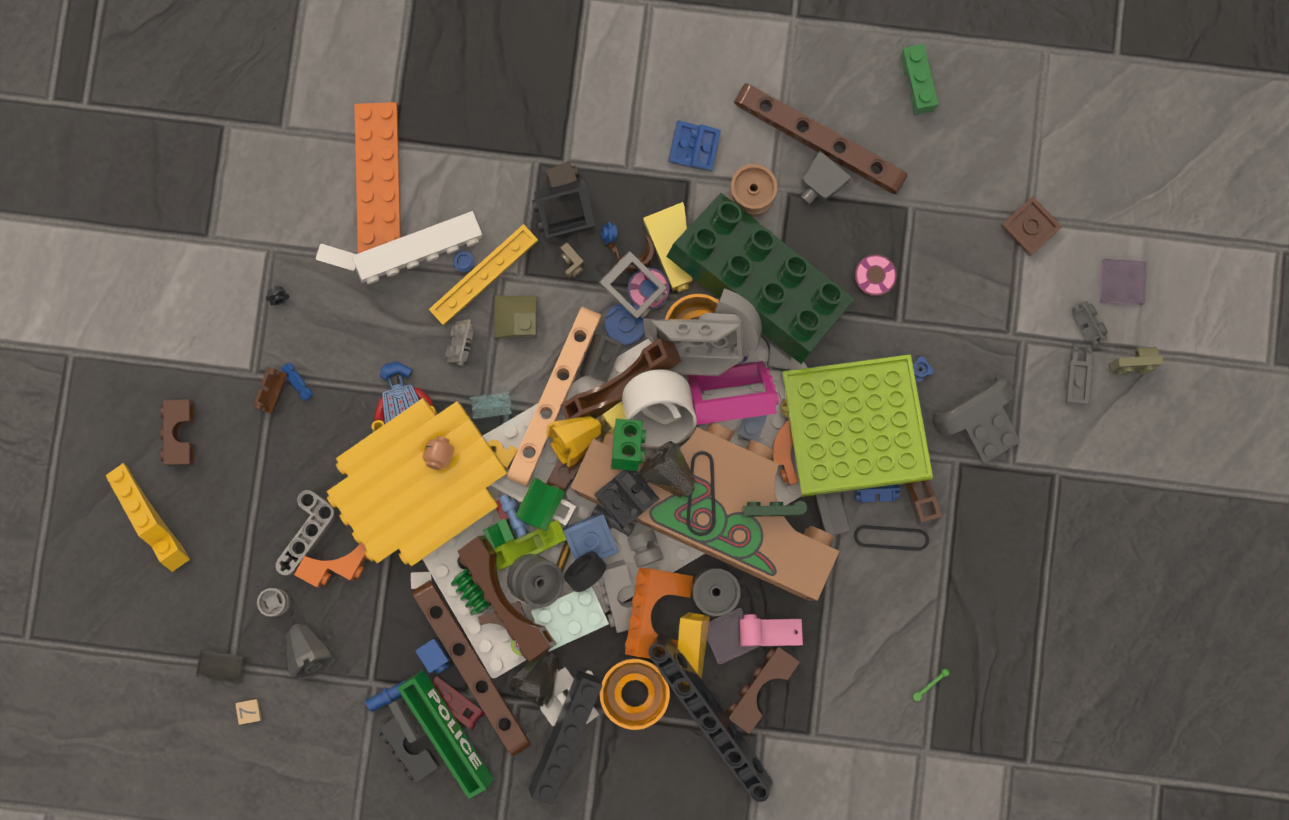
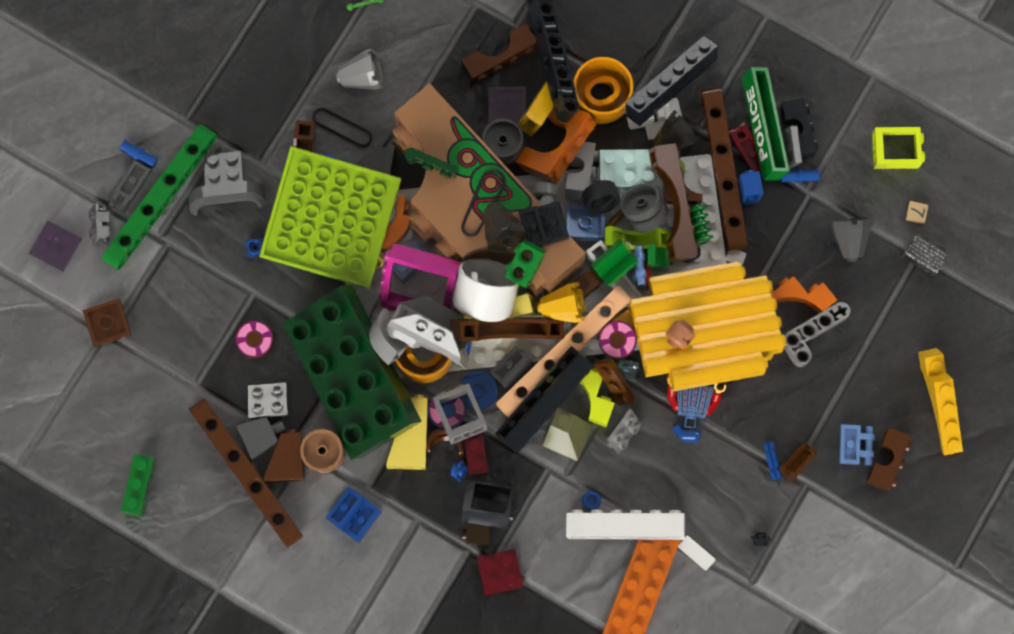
camera: 160 degrees left, 5 degrees down
(223, 431) = (850, 444): none -> medium blue plate
(273, 602) = (862, 286): light grey wheel -> none
(316, 766) = (878, 148): none -> neon yellow window
(483, 275) = (579, 481): yellow plate -> none
(489, 387) = (615, 381): none -> reddish brown hinge
(504, 430) = (617, 339): none -> tile
(514, 381) = (599, 407): none -> neon yellow arch
(524, 153) = (500, 572): none -> dark red plate
(552, 336) = (544, 399): none -> black brick
(569, 257) = (500, 464): dark tan bracket -> none
(598, 255) = (476, 455): none -> dark red plate
(770, 632) = (473, 93): bright pink door -> none
(785, 165) = (286, 460): none -> reddish brown slope
(832, 218) = (267, 400): none -> light grey hinge
(898, 603) = (361, 72): none -> light grey cone
(1043, 378) = (159, 197): none -> green beam
(1087, 413) = (138, 154): none -> blue pin
(1144, 362) = (73, 172): olive plate -> none

